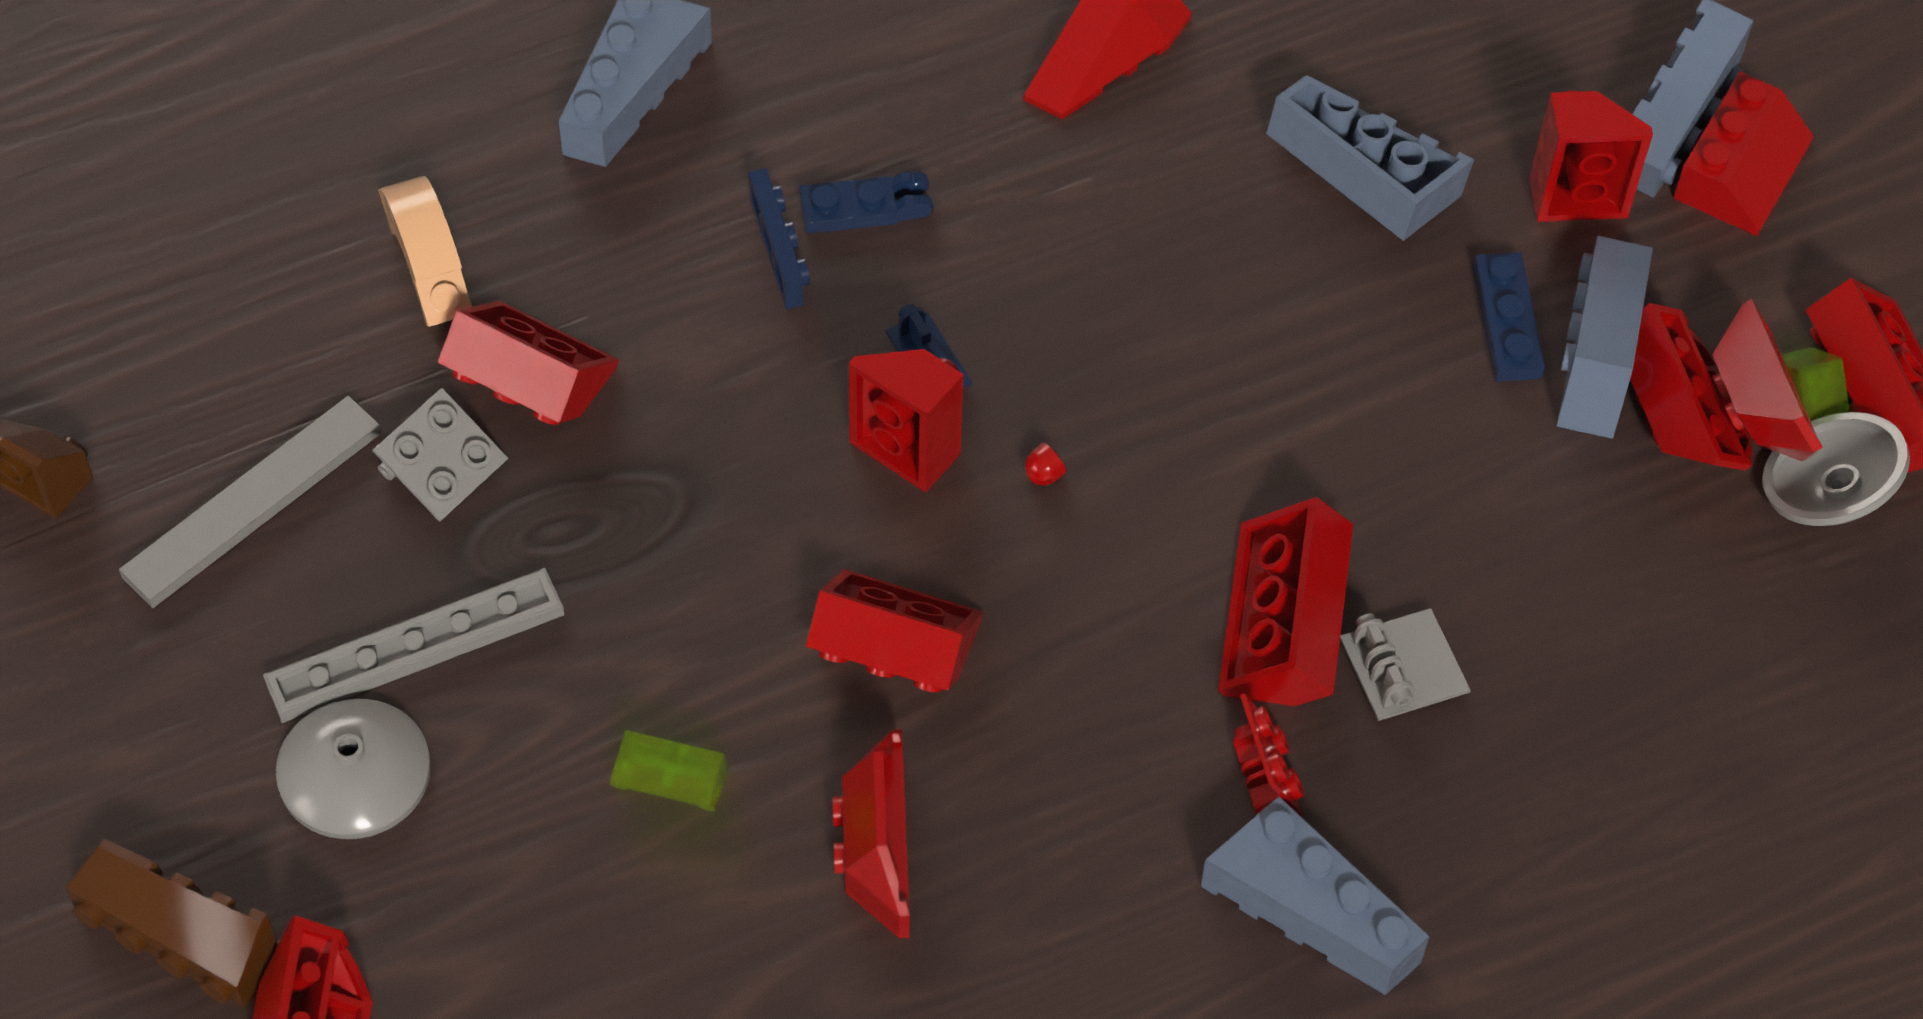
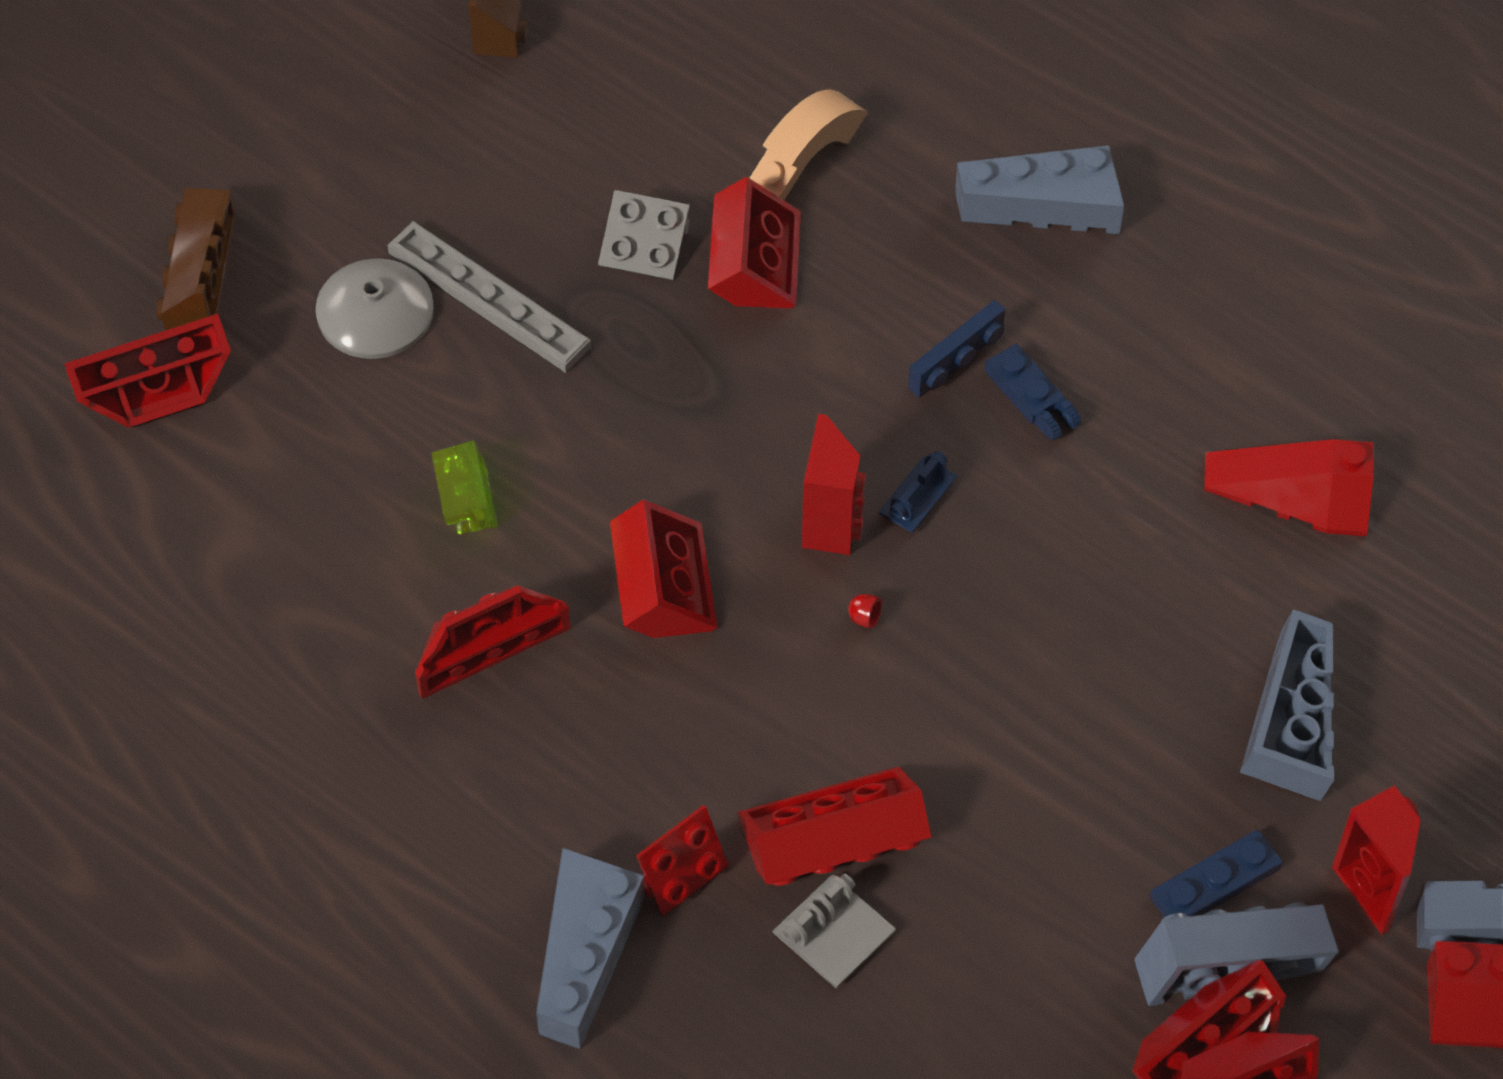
camera: 65 degrees right, 0 degrees up
(249, 501) = (548, 150): light grey tile -> none

